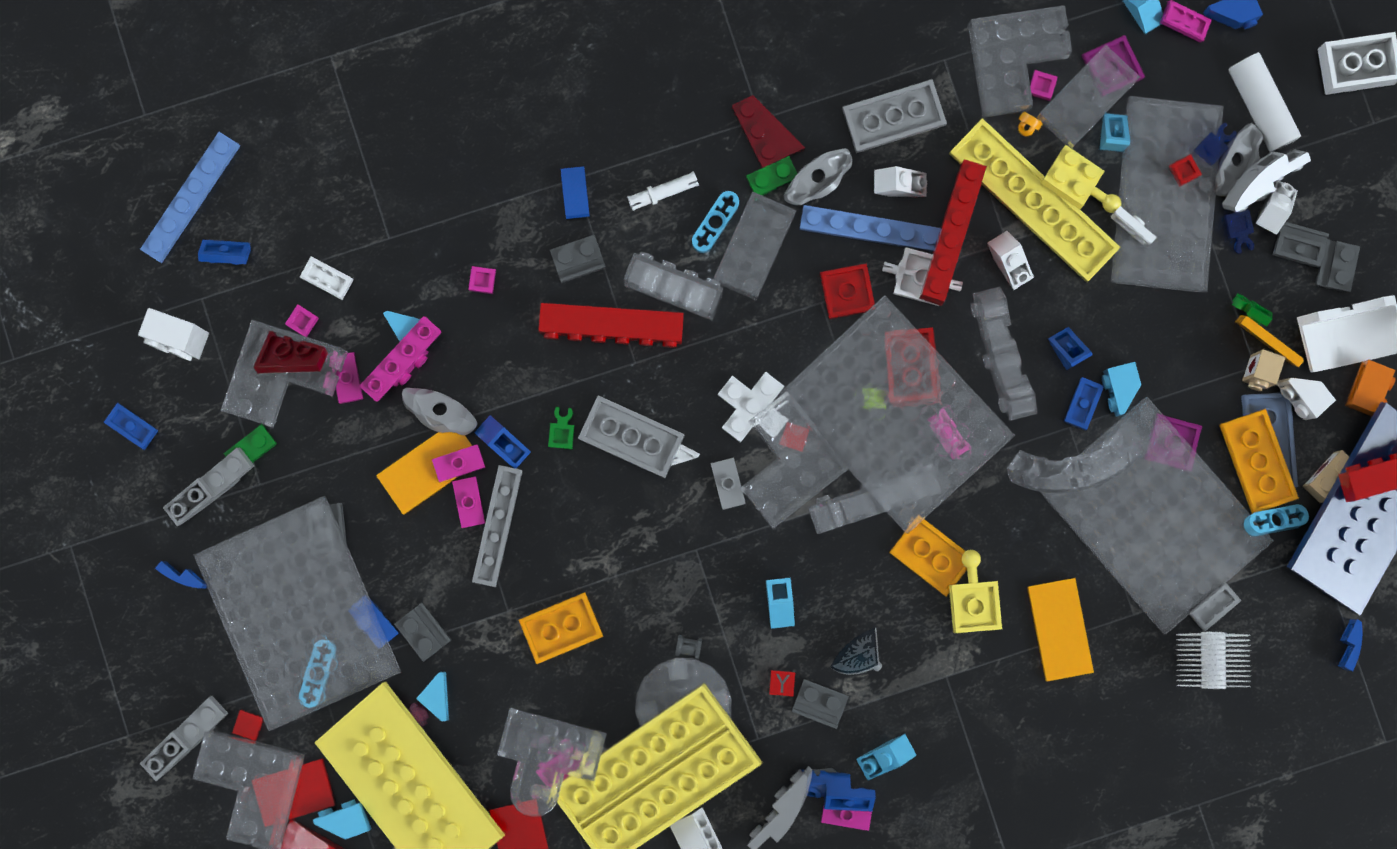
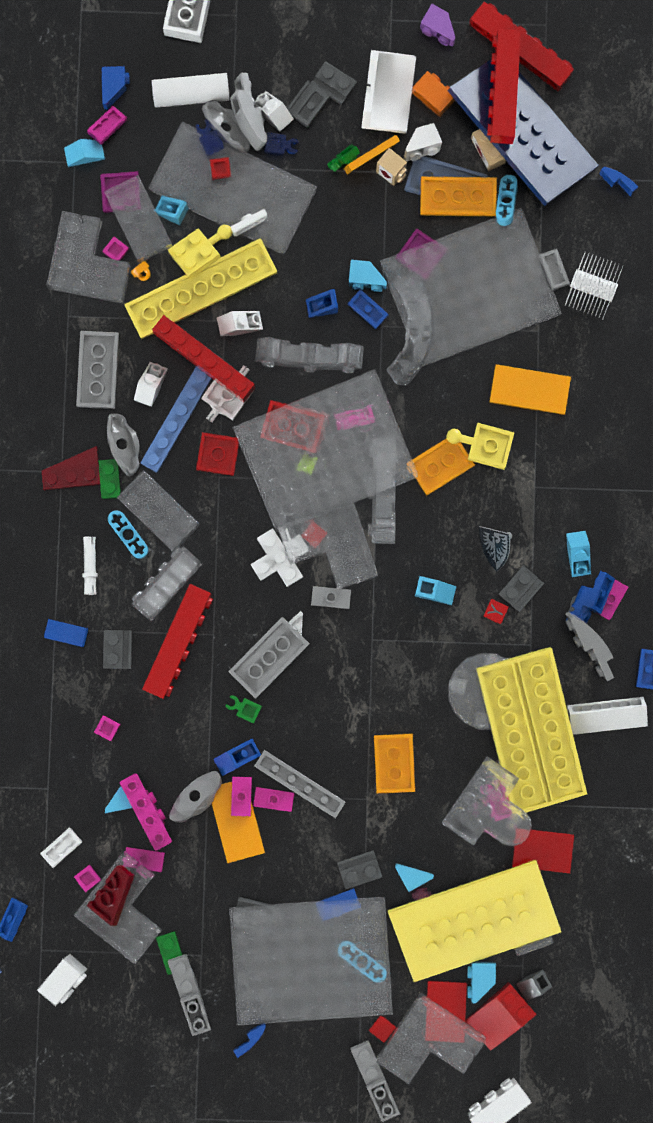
camera: 65 degrees left, 0 degrees up
(131, 426) = (120, 1039): blue plate -> none
(688, 647) = (443, 671): dark grey bush -> none

